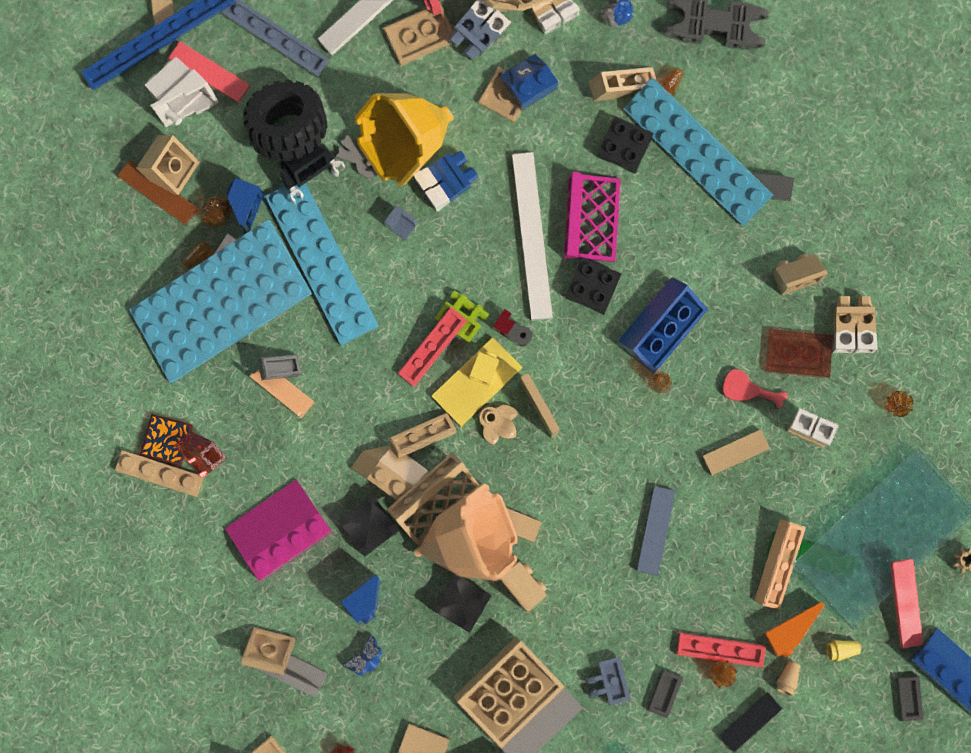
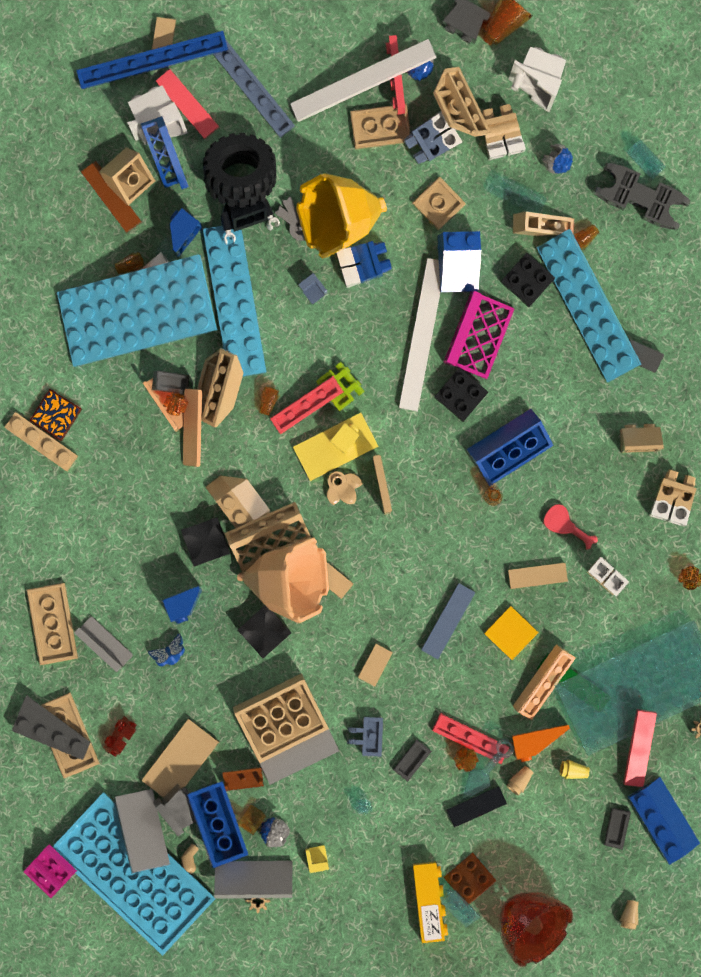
camera: 15 degrees right, 5 degrees up
(200, 453) = (81, 435): clear red slope -> none
(202, 117) = (162, 129): none -> blue fence
(216, 211) = (156, 229): clear orange head -> none
(222, 656) = (52, 624): none -> tan tile
(268, 651) = (88, 621): tan tile -> none
(278, 530) = (127, 521): dark pink slope -> none
(291, 387) = (175, 404): none -> clear orange gear
(317, 407) = (192, 428): none -> light nougat slope
(332, 355) = (219, 386): none -> tan wedge
(389, 354) = (268, 400): none -> clear orange cone
(422, 435) = (274, 478): tan tile -> none
(517, 334) = (377, 410): leg -> none
(523, 586) = (320, 634): tan slope -> none
(529, 81) = (462, 198): blue slope -> none
(546, 146) = (459, 261): none -> slope
(584, 61) = (516, 195): none -> clear light blue tile
(592, 602) = (375, 665): none -> tan tile
(727, 522) = (511, 633): none -> yellow tile
(744, 691) = (479, 779): none -> clear light blue piece
(799, 353) = (619, 507): clear red tile -> none

